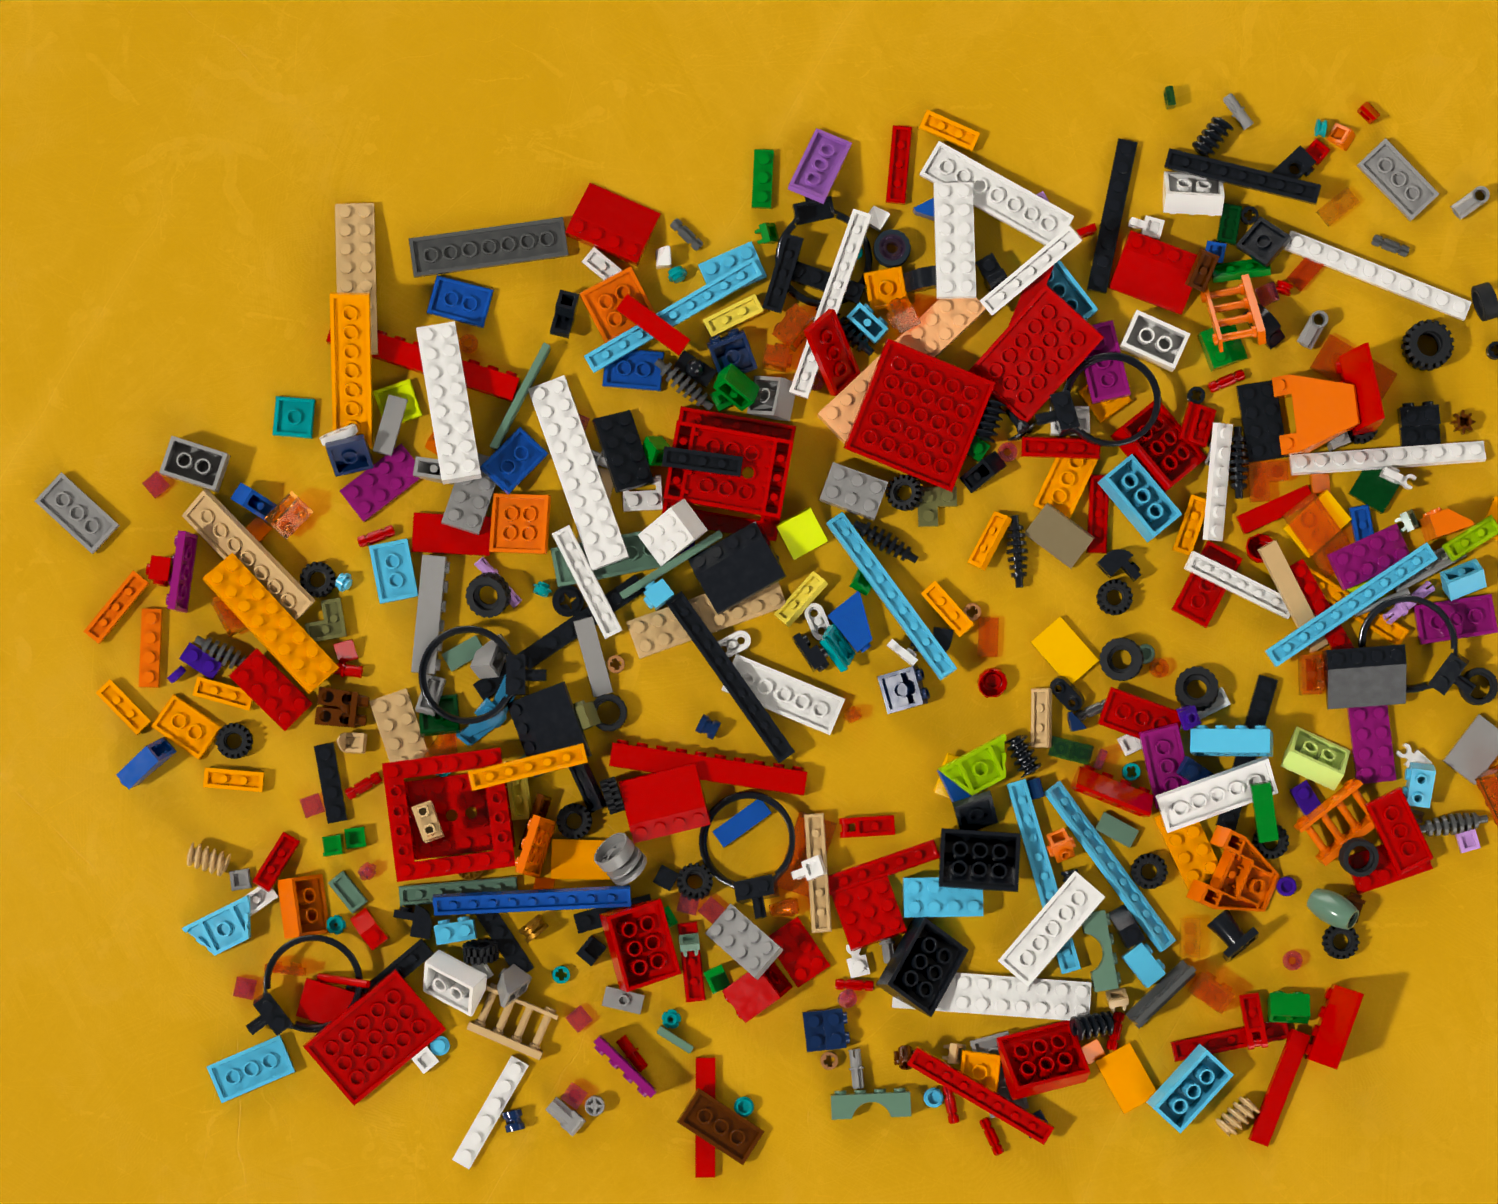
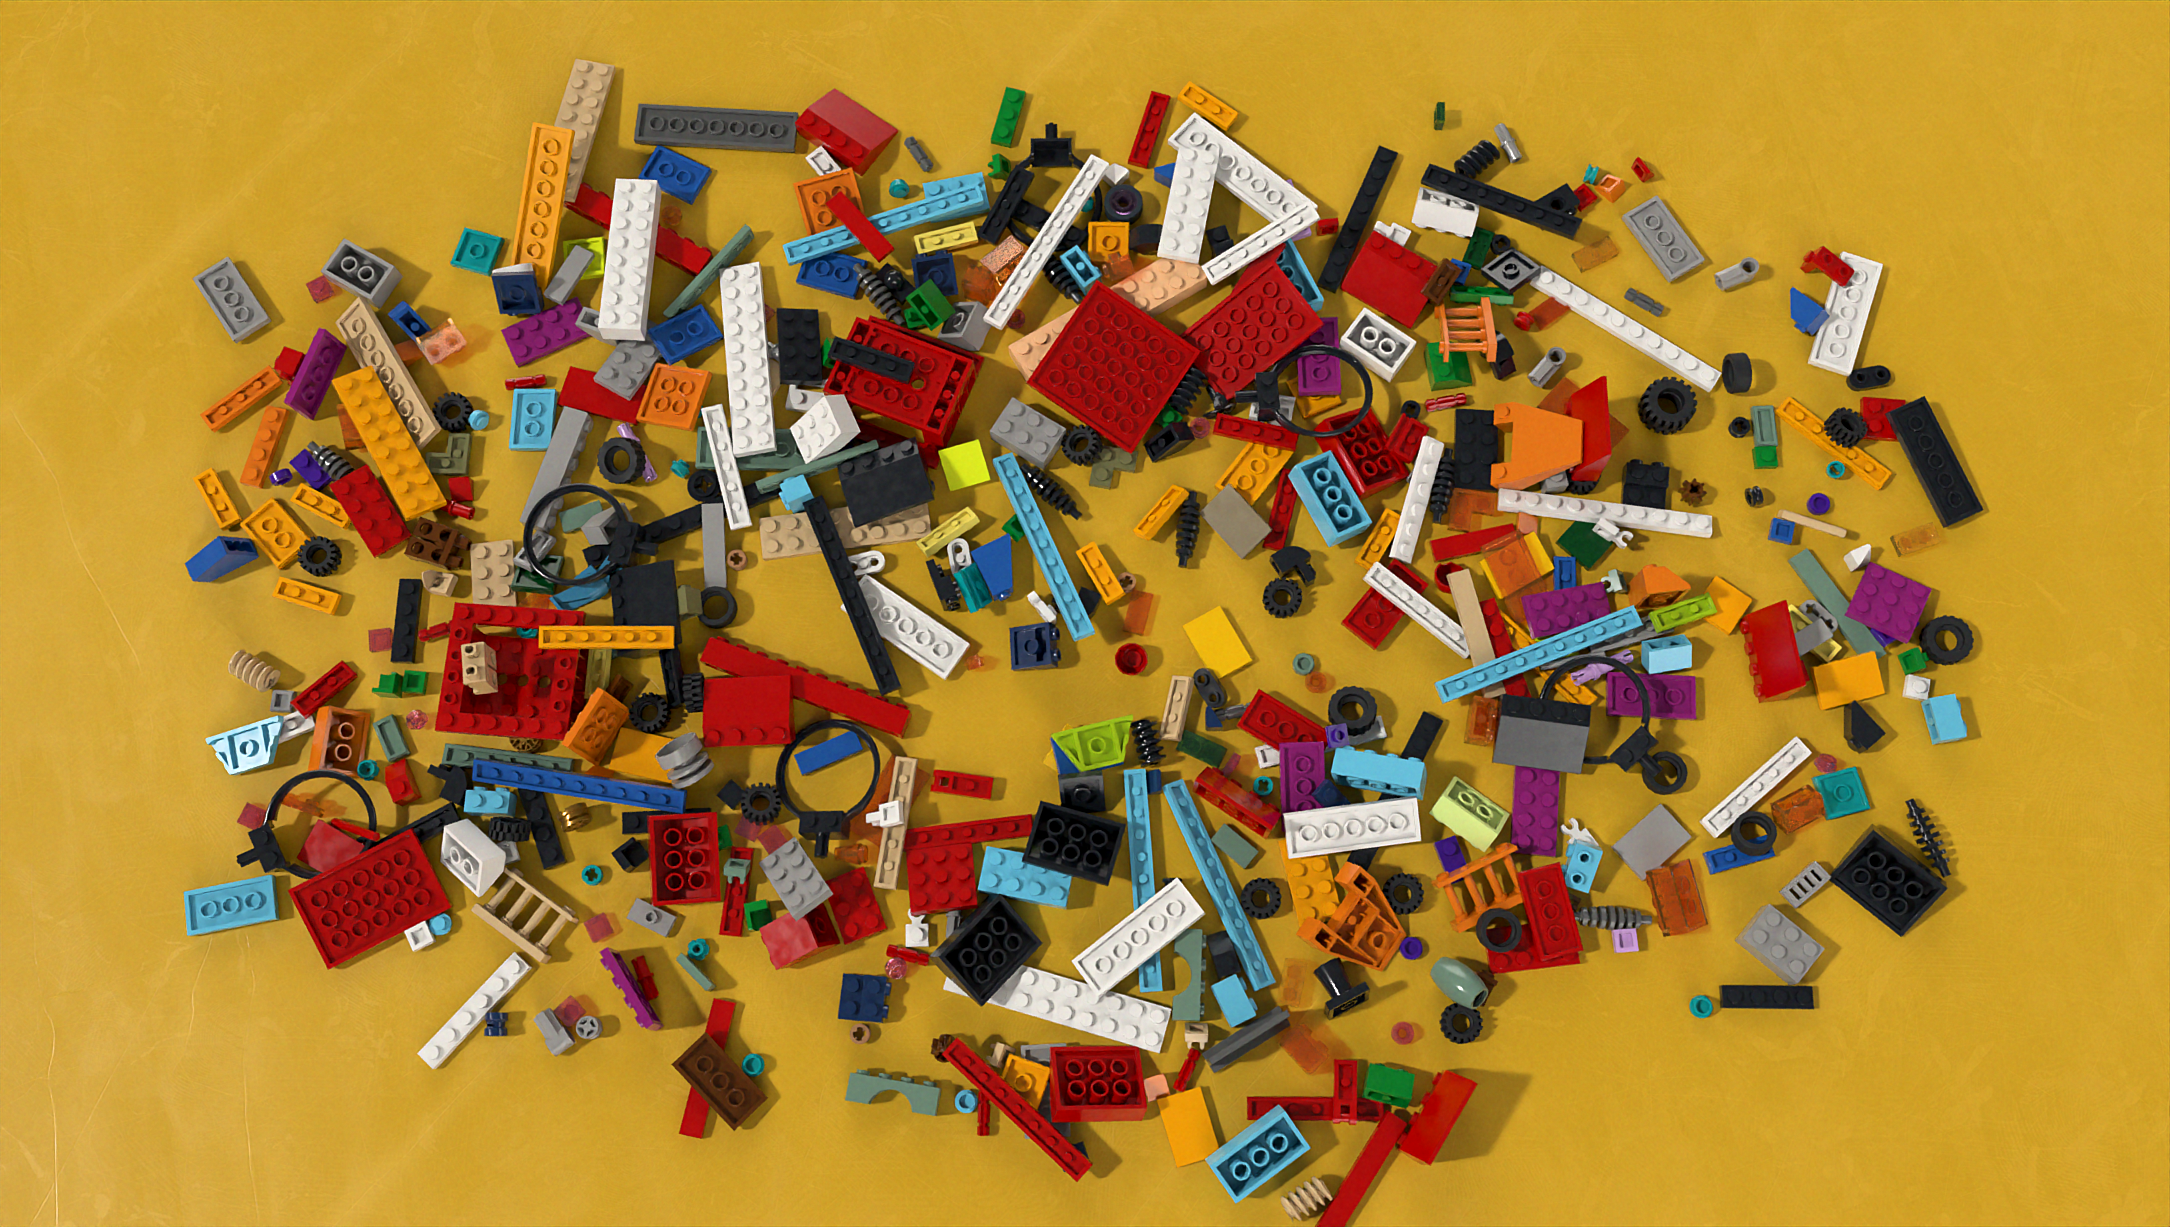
camera: 20 degrees right, 10 degrees down
(512, 984) = (534, 872): light grey slope -> none
(564, 313) = (776, 201): black brick -> none
(663, 257) = (889, 171): white slope -> none
(707, 726) = (816, 643): dark blue wheel -> none
(819, 166) = (1066, 110): medium lavender plate -> none
(832, 352) = (1035, 285): red plate -> none
(856, 1068) = (887, 1049): light grey axle -> none
(991, 1136) = (1021, 1160): red axle -> none
(1060, 845) = (1168, 848): orange brick -> none
(1092, 1024) = (1161, 1055): black piece -> none
(1136, 659) = (1276, 646): black tyre -> none
(1264, 812) = (1401, 857): green tile -> none
(1267, 294) = (1505, 323): tile -> none

